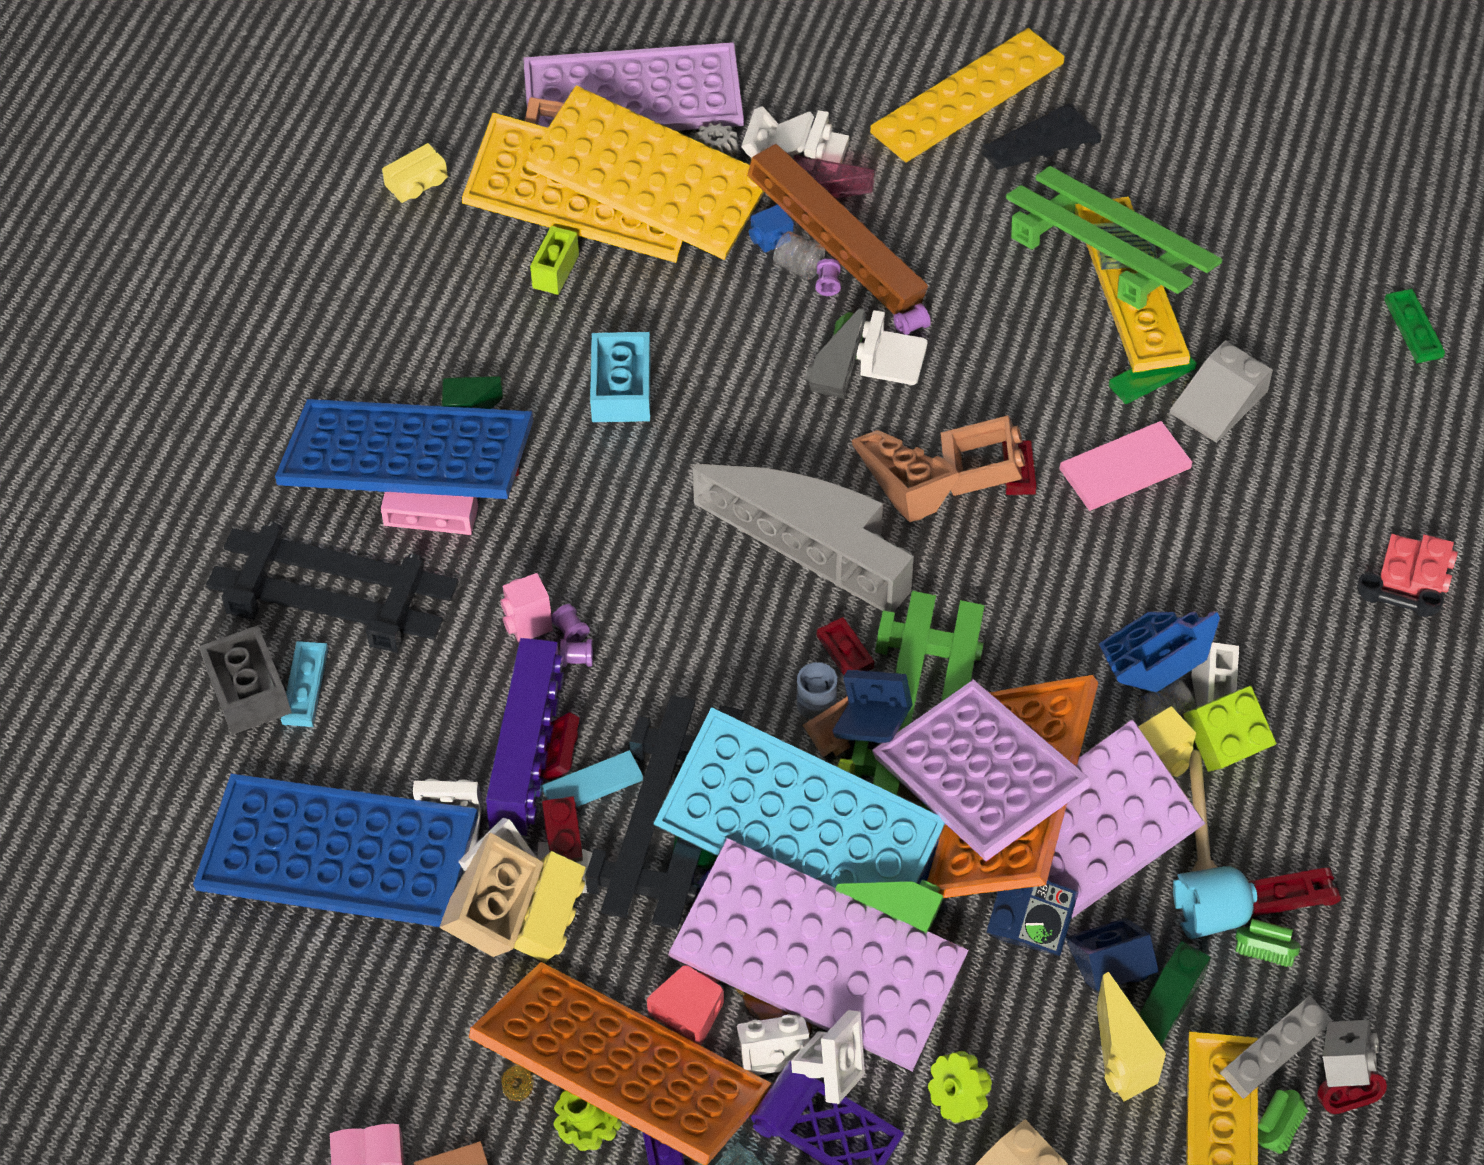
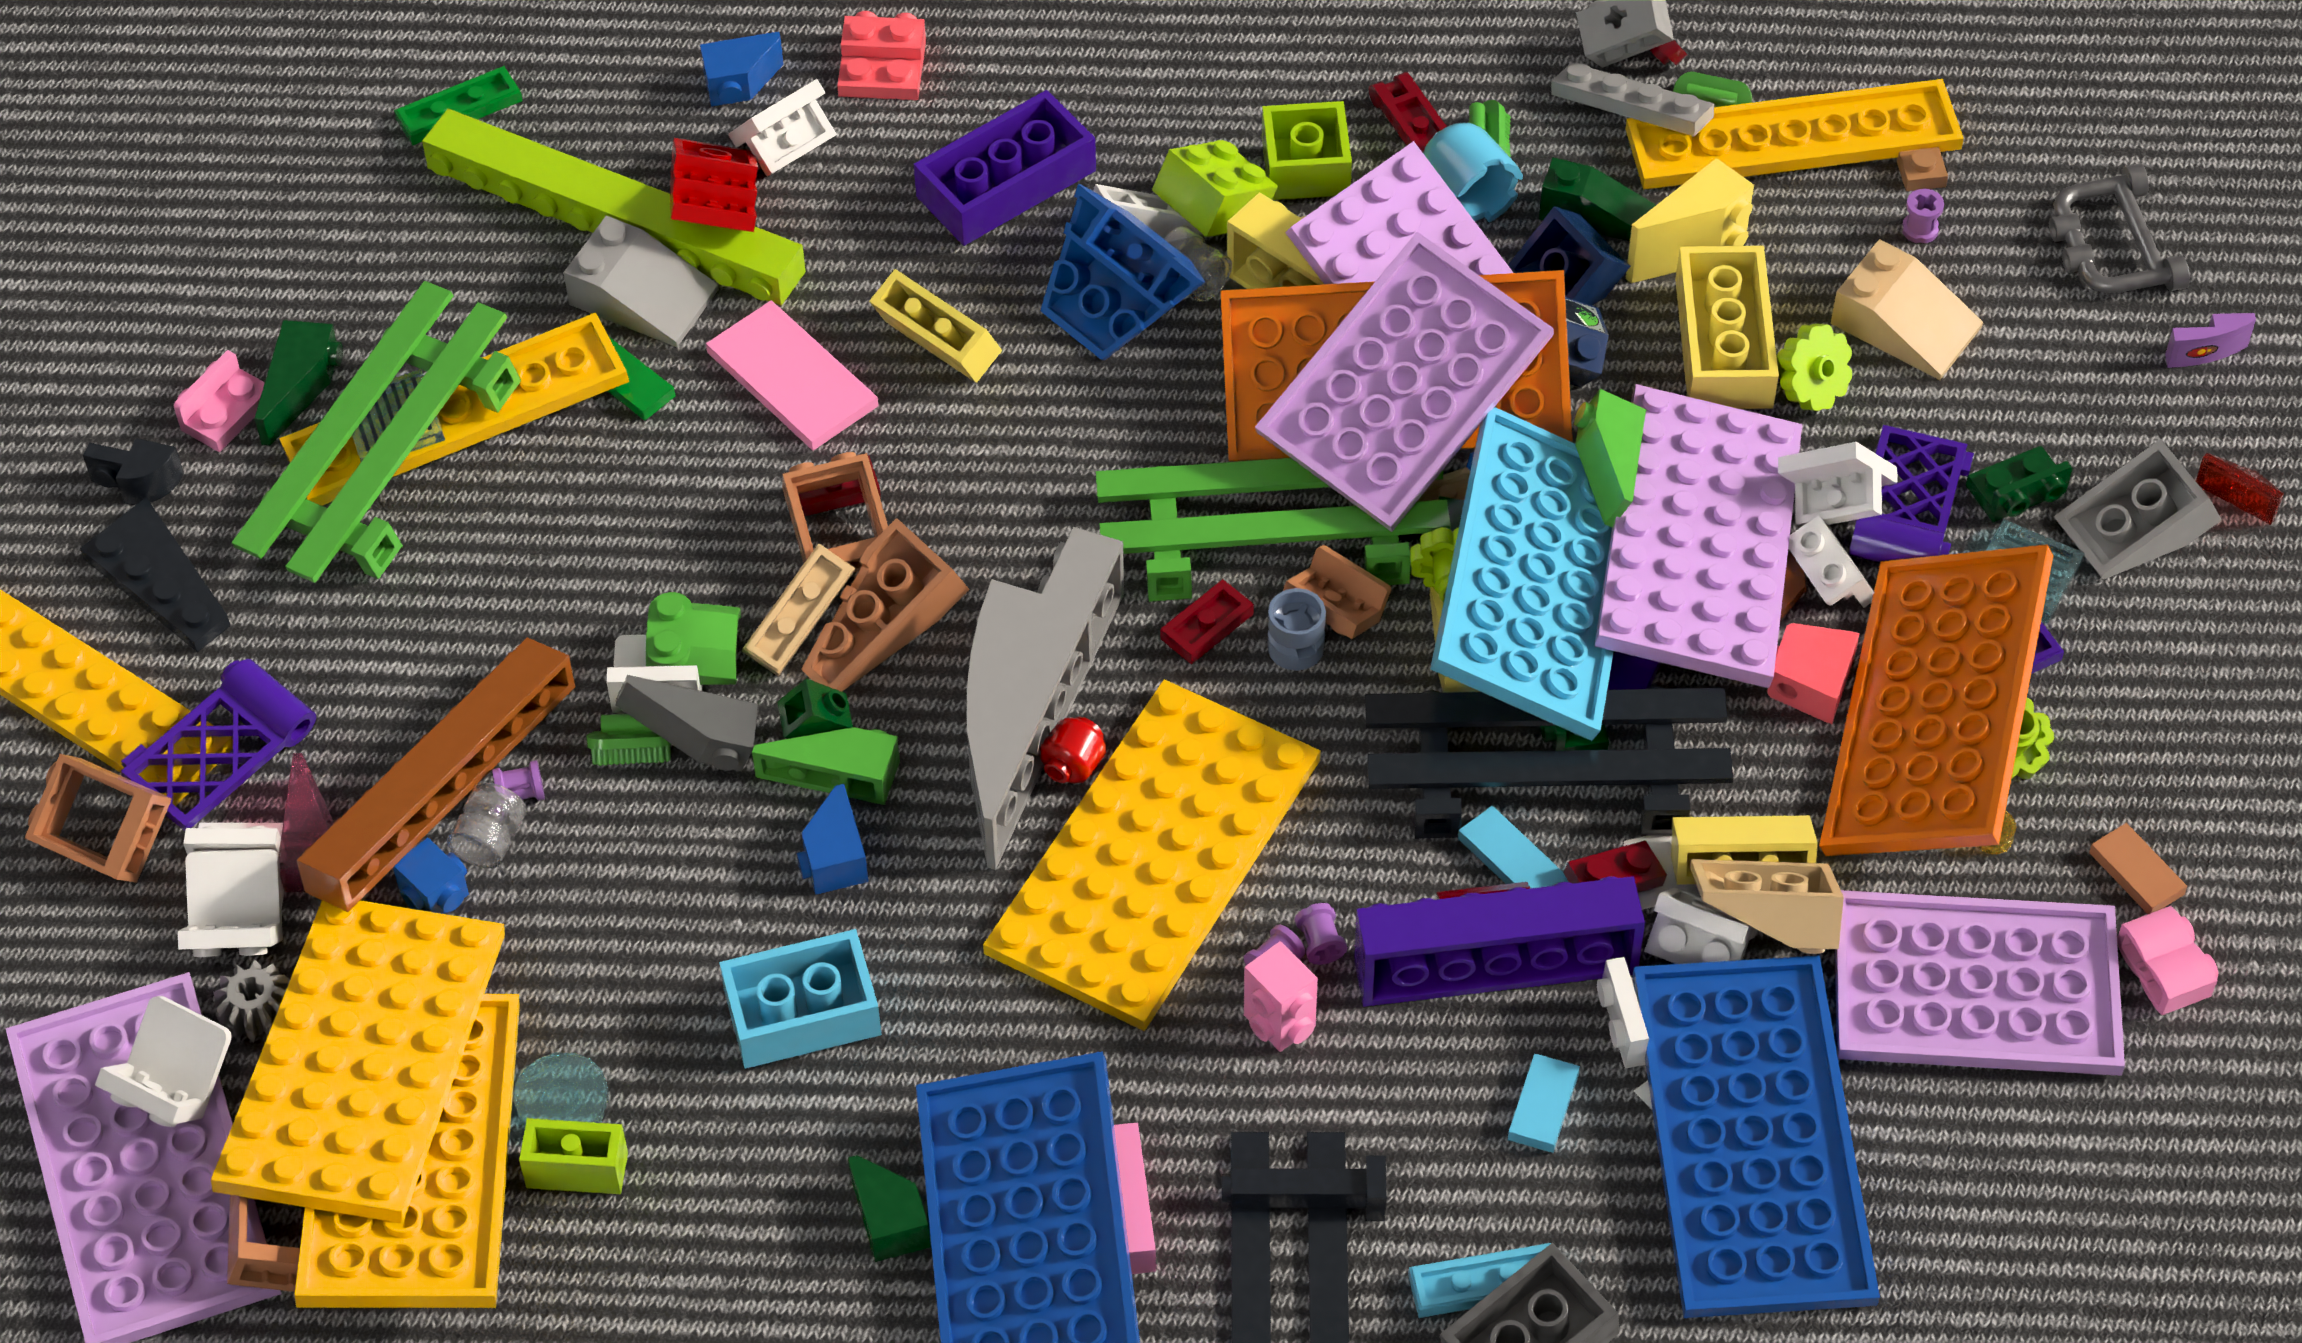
camera: 105 degrees left, 0 degrees up
(397, 1027) = (1979, 983): none -> lavender plate
(411, 747) = (1543, 1103): none -> medium azure tile
(606, 270) = (561, 1089): none -> clear light blue tile
(666, 88) = (169, 1064): none -> white bracket
(677, 586) = (1152, 854): none -> yellow plate
(733, 418) = (833, 846): none -> blue slope
(759, 548) = (1072, 750): none -> red head
(788, 436) = (849, 756): none -> bright green slope
(827, 410) = (813, 710): none -> dark green brick
(856, 84) = (136, 831): none -> nougat window
(875, 706) = (1332, 534): dark blue bracket -> none
(907, 368) = (693, 635): none -> bright green slope
(912, 320) = (585, 660): medium lavender bush -> none
(914, 425) = (798, 609): none -> tan tile
(916, 165) = (254, 700): none -> dark purple piece
(1019, 1037) = (1727, 326): none -> light yellow brick
(1122, 130) = (142, 472): none -> black brick
(1138, 540) = (935, 325): none -> light yellow brick
(1170, 177) = (219, 403): none -> bright pink bracket
(1181, 211) = (296, 375): none -> dark green slope
(1261, 801) = (1306, 149): none -> lime brick
(1281, 609) = (1005, 167): none -> dark purple brick
(1292, 389) = (586, 193): none -> lime brick
(1294, 434) = (713, 185): none -> red slope
(1348, 491) = (786, 129): none -> white bracket
(1416, 477) = (740, 66): none -> blue slope
(1427, 604) = (942, 45): black bar -> none

